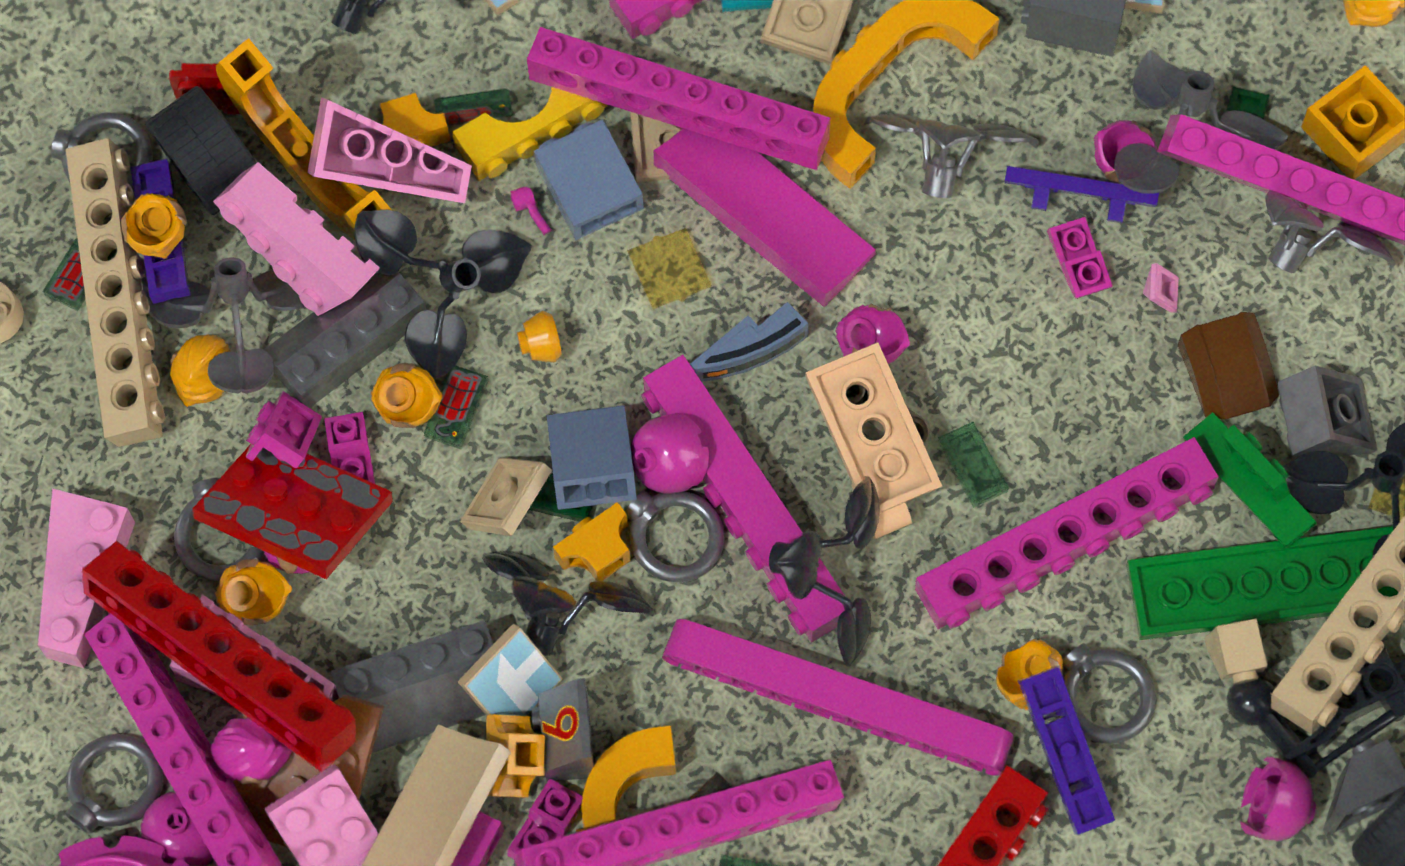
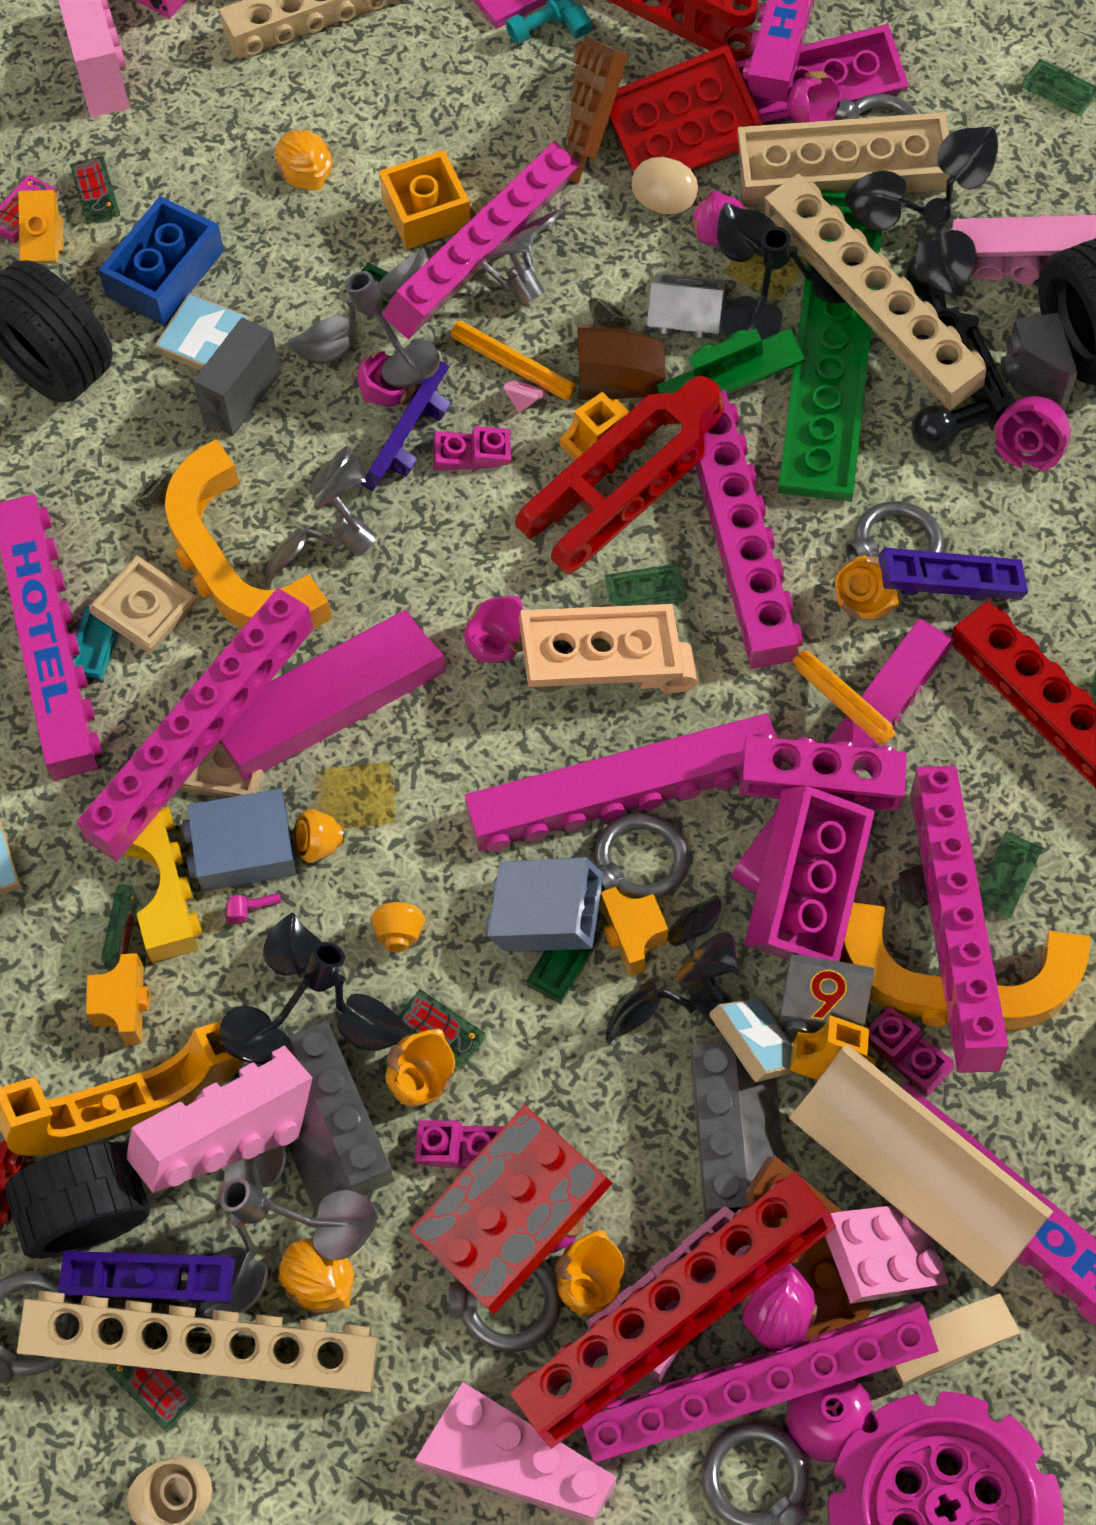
camera: 75 degrees left, 5 degrees down
(154, 225) = (149, 1270): light orange hair -> none
(284, 430) = (419, 1200): dark pink bracket -> none
(372, 155) = (150, 1027): bright pink wedge -> none
(506, 496) = (561, 996): tan tile -> none
(611, 242) = (316, 835): none -> light orange cone
(669, 454) = (564, 827): dark pink cylinder -> none
(678, 683) = (809, 875): none -> dark pink brick
(752, 345) = (467, 733): sand blue slope -> none
(797, 732) = (763, 779): none -> dark pink brick
(799, 565) = (719, 738): black plant -> none
(891, 674) = (844, 697): none -> light orange axle
(1137, 370) = (591, 423): none -> light orange brick
(1159, 448) = (607, 517): none -> red piece
(1198, 266) = (513, 360): none -> light orange axle
(1237, 651) = (893, 418): tan slope -> none
(1287, 343) = (607, 313): none -> clear smoke slope

